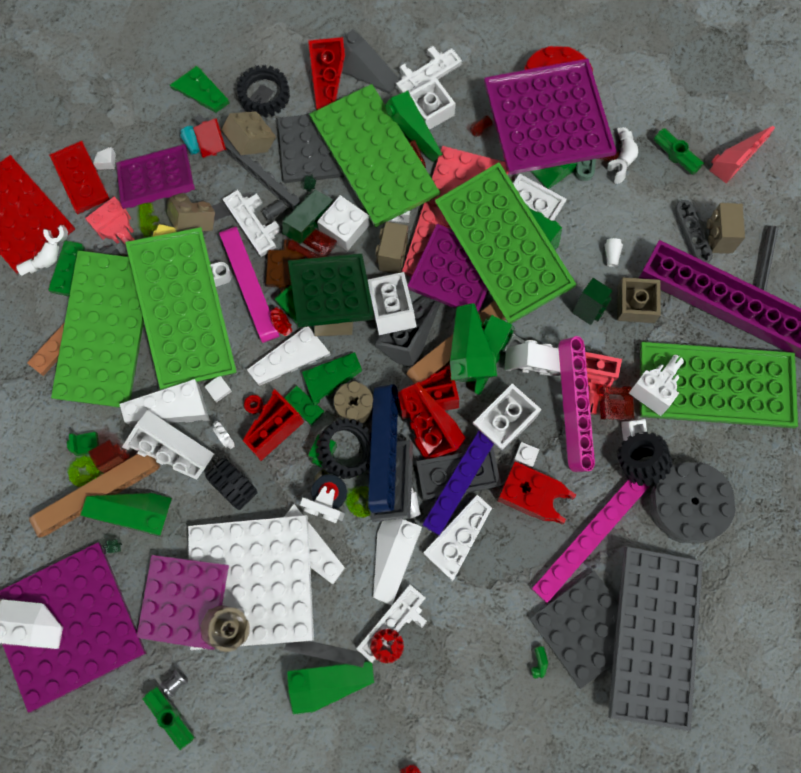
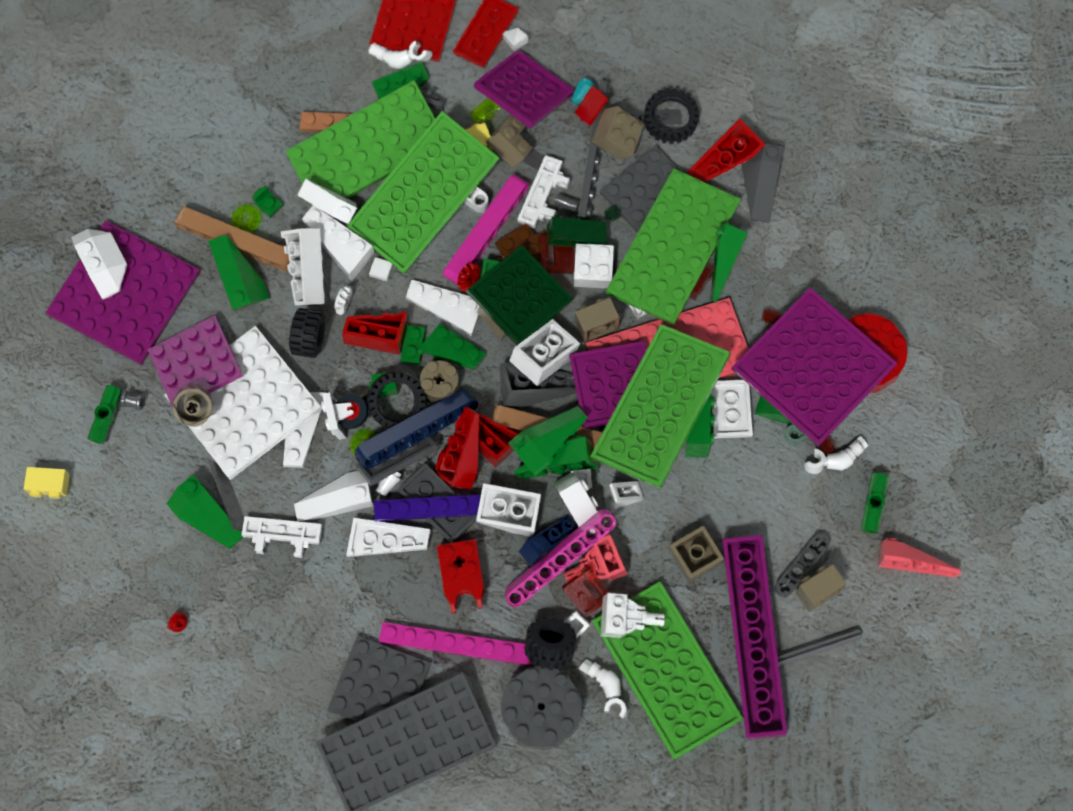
camera: 60 degrees right, 0 degrees up
(108, 456) = (266, 227): clear red brick -> none
(111, 221) = (460, 87): coral brick -> none
(112, 546) = (202, 281): clear green plate -> none
(125, 390) = (327, 201): none -> white slope
(201, 89) = (637, 62): green wing -> none
(249, 400) = (387, 300): red plate -> none
(377, 644) = (264, 544): red gear -> none
(433, 103) = (759, 261): white brick -> none
(437, 67) = (806, 243): white hinge -> none
(526, 455) = (493, 549): white plate -> none
(540, 670) = (327, 667): green arm -> none
(550, 323) = (625, 493): none -> white slope
(552, 411) = (546, 540): none -> dark blue slope
(593, 302) = (660, 513): dark green brick -> none
(613, 250) = (731, 506): white cone -> none
(703, 435) = (609, 682): none -> white piece

